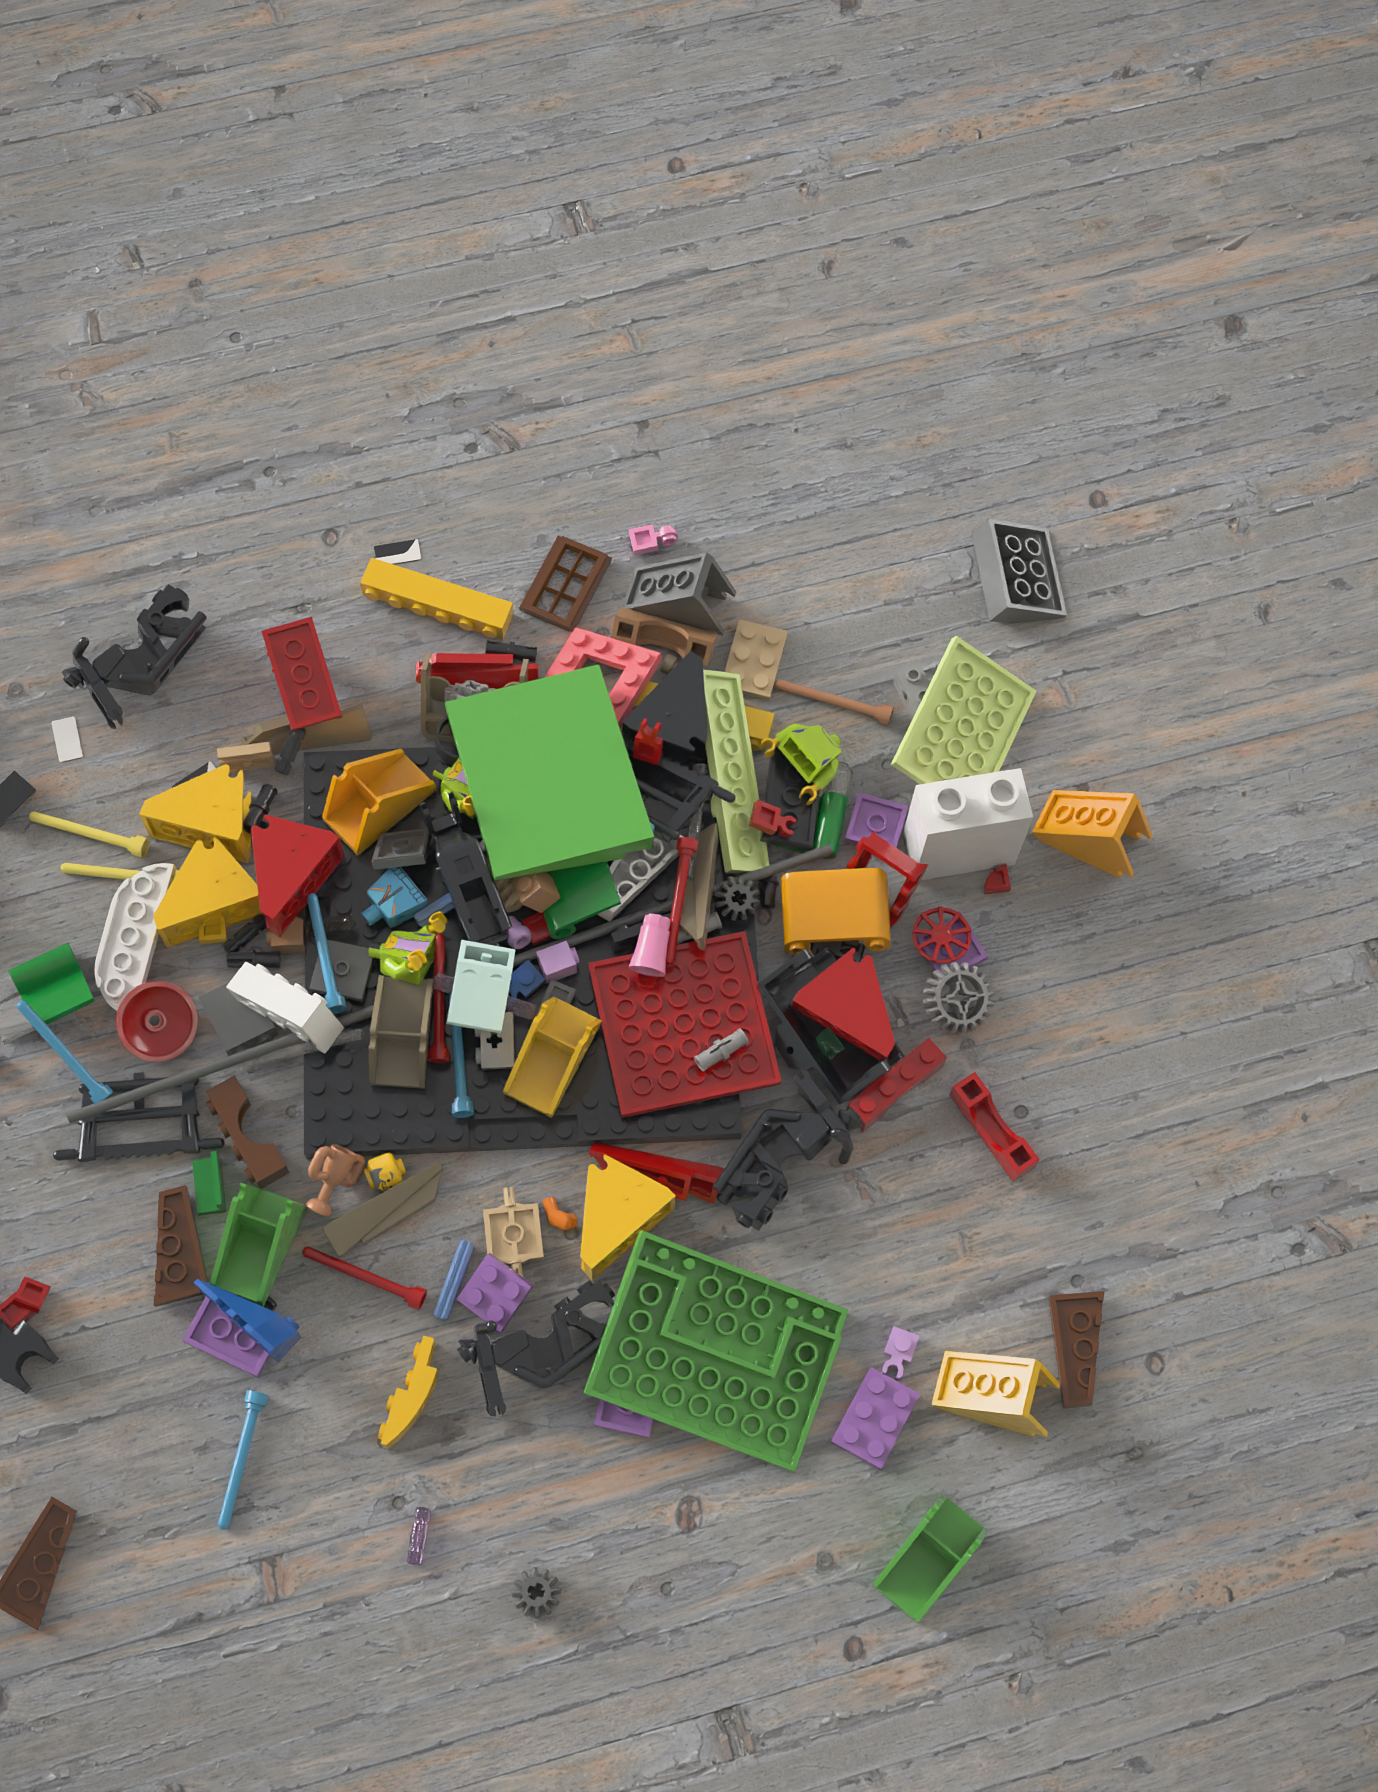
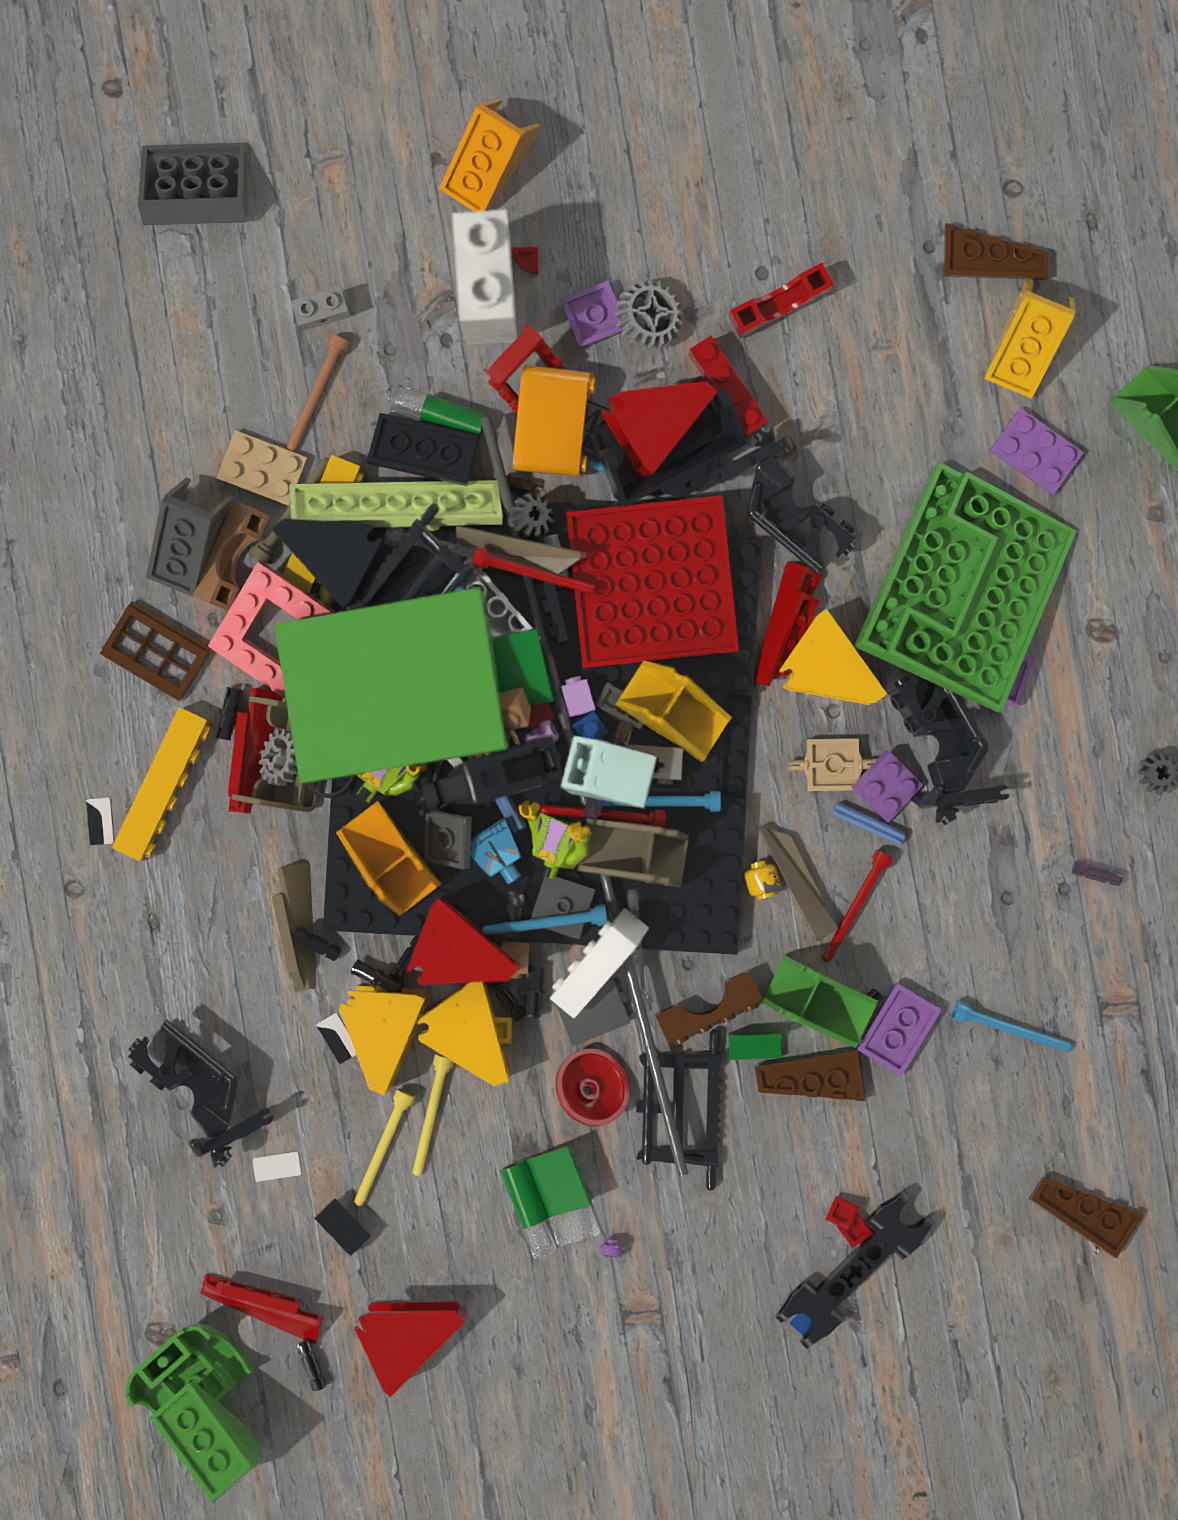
camera: 80 degrees left, 20 degrees up
(97, 1090) = (656, 1145): dark azure piece -> none
(131, 932) = (499, 1109): white plate -> none
(247, 756) = (321, 997): tan plate -> none
(261, 1324) = (904, 998): blue wedge -> none
(301, 673) = (250, 925): red ladder -> none
(334, 1173) = (758, 928): nougat piece -> none
(408, 1404) = (981, 873): yellow slope -> none
(556, 1217) = (820, 723): orange arm -> none
(645, 539) = (114, 564): bright pink plate -> none
(647, 744) = (370, 583): red plate -> none
(651, 946) = (579, 603): bright pink plant -> none
(721, 1049) = (679, 533): light grey pin -> none
(768, 819) = (452, 474): red plate -> none
(810, 752) = (382, 423): lime torso -> none
(829, 1044) = (686, 445): clear green plate -> none
(877, 815) = (456, 369): medium lavender plate -> none
(900, 1348) = (974, 419): lavender plate -> none
(941, 934) = (583, 321): red wheel -> none
(963, 718) = (366, 265): yellowish green plate -> none

